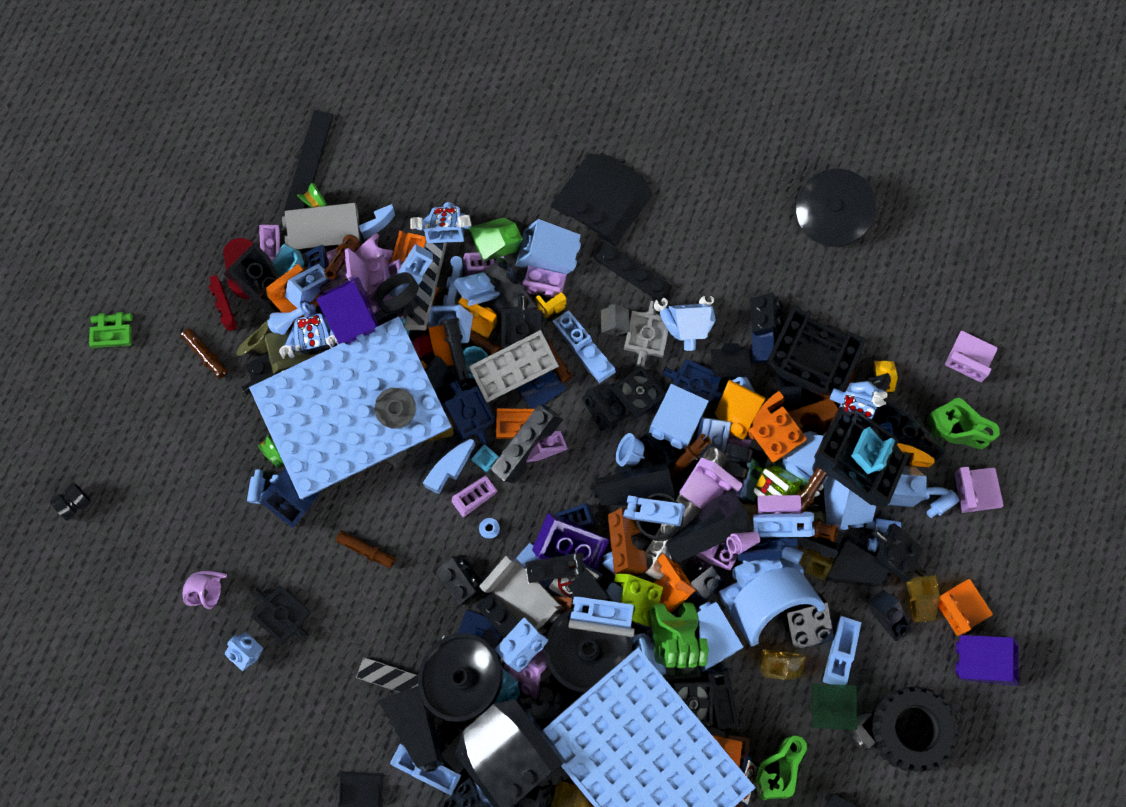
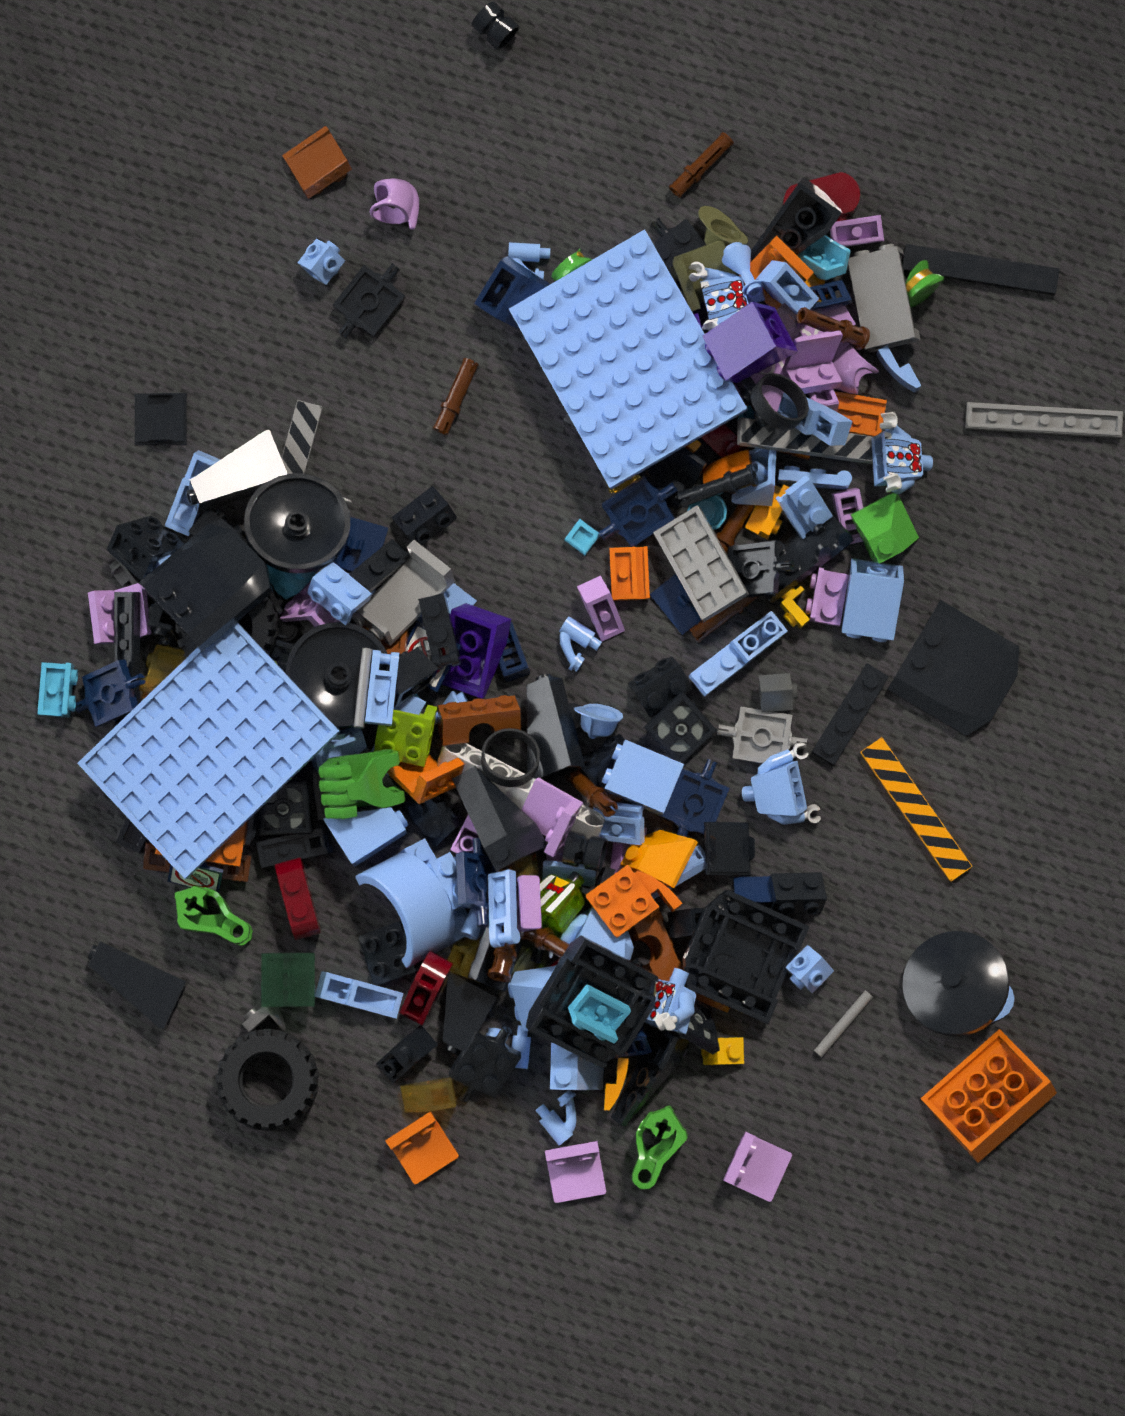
camera: 85 degrees right, 10 degrees up
(110, 336) = (718, 44): bright green plate -> none
(161, 650) = (317, 162): none -> dark orange slope
(222, 304) = (769, 180): dark red plate -> none
(395, 408) = (626, 415): dark grey tile -> none
(424, 129) = (1044, 420): none -> light grey tile
(449, 466) = (567, 491): light blue slope -> none
(464, 510) = (518, 524): lavender slope -> none
(489, 534) = (497, 554): light blue plate -> none
(537, 427) = (617, 597): black arch -> none
(562, 462) = (580, 634): none -> light blue plant
(654, 511) = (515, 749): light blue plate -> none
(704, 231) = (916, 809): none -> tile
(741, 542) = (477, 855): lavender cone -> none
(766, 696) = (297, 898): none -> dark red brick
(782, 665) = (337, 920): clear yellow slope -> none
(825, 309) = (809, 969): none -> light blue brick
(841, 593) = (426, 988): none -> dark red brick
(863, 290) = (843, 1023): none -> light grey bar
(915, 193) = (989, 1095): none -> orange slope
(988, 659) = (356, 1176): dark purple slope -> none

